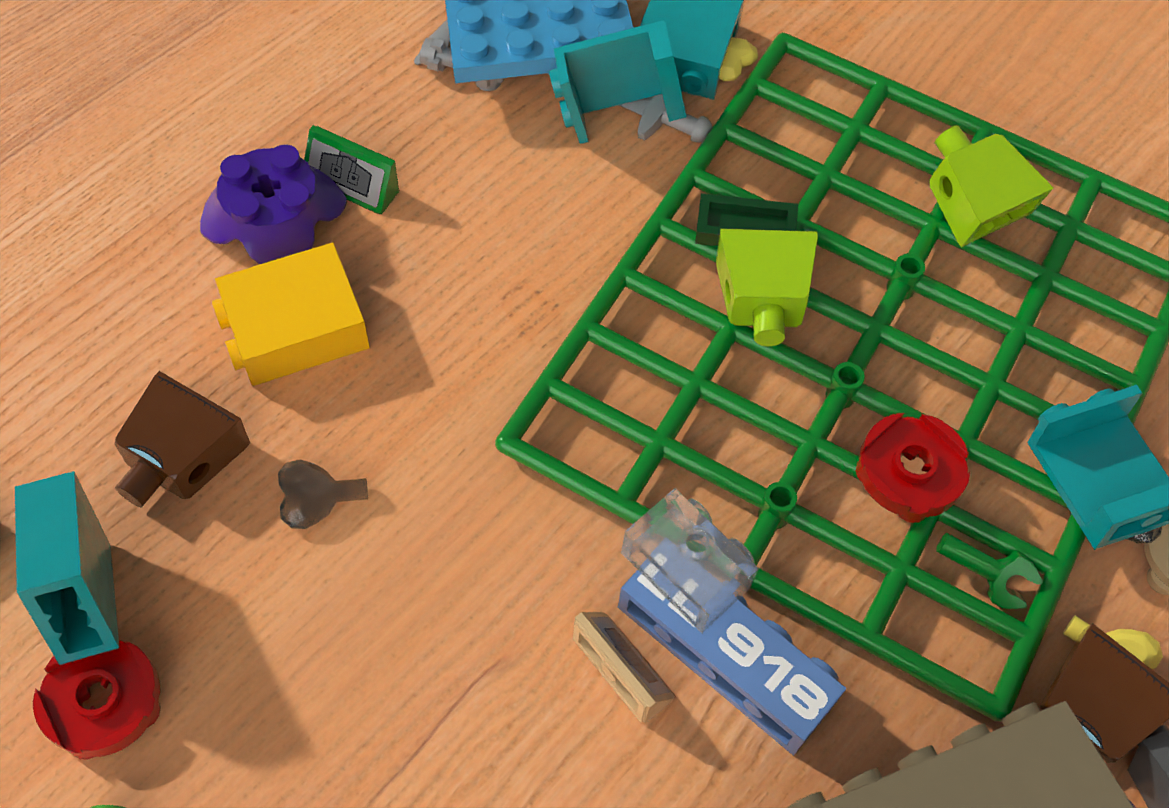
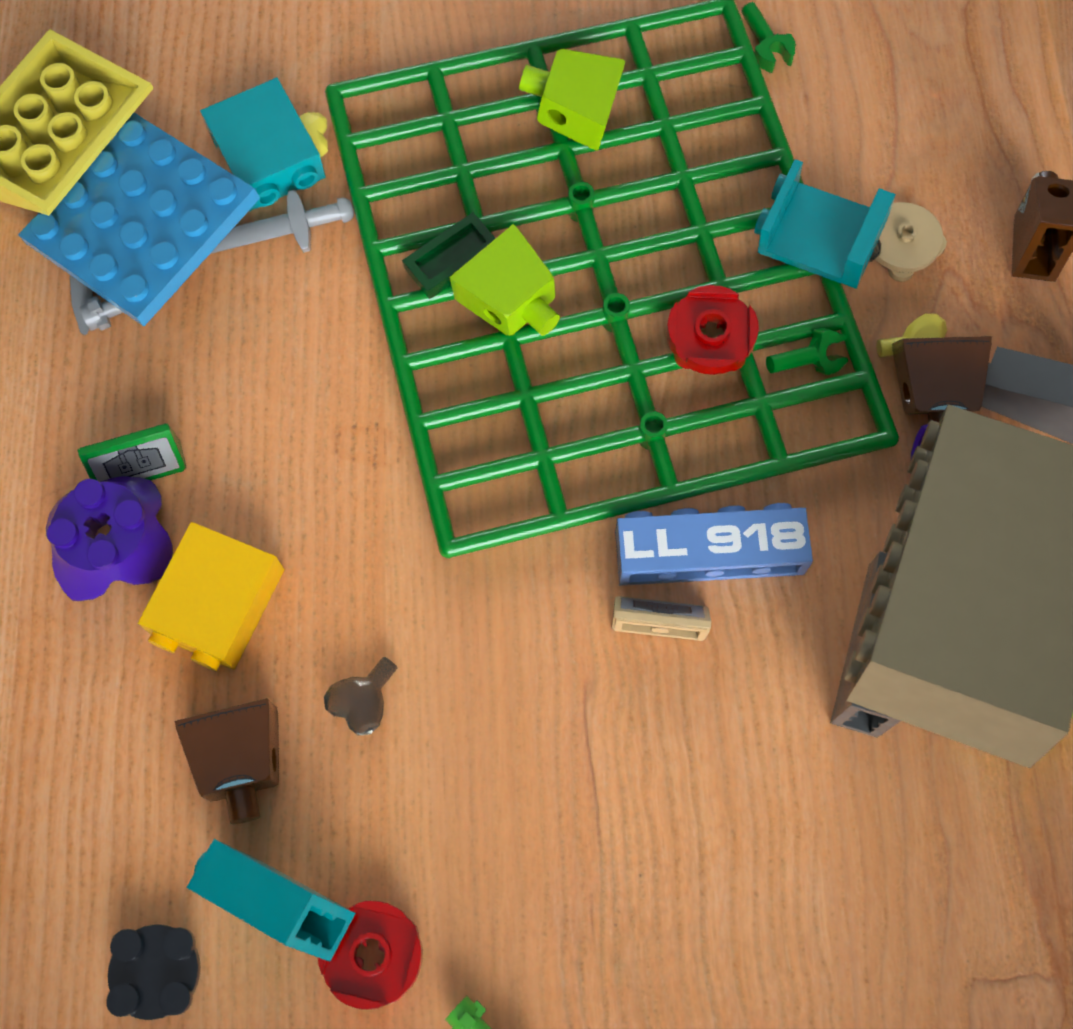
camera: 40 degrees left, 10 degrees up
(616, 72) = (255, 216): teal panel -> none
(689, 559) = (651, 516): clear brick -> none

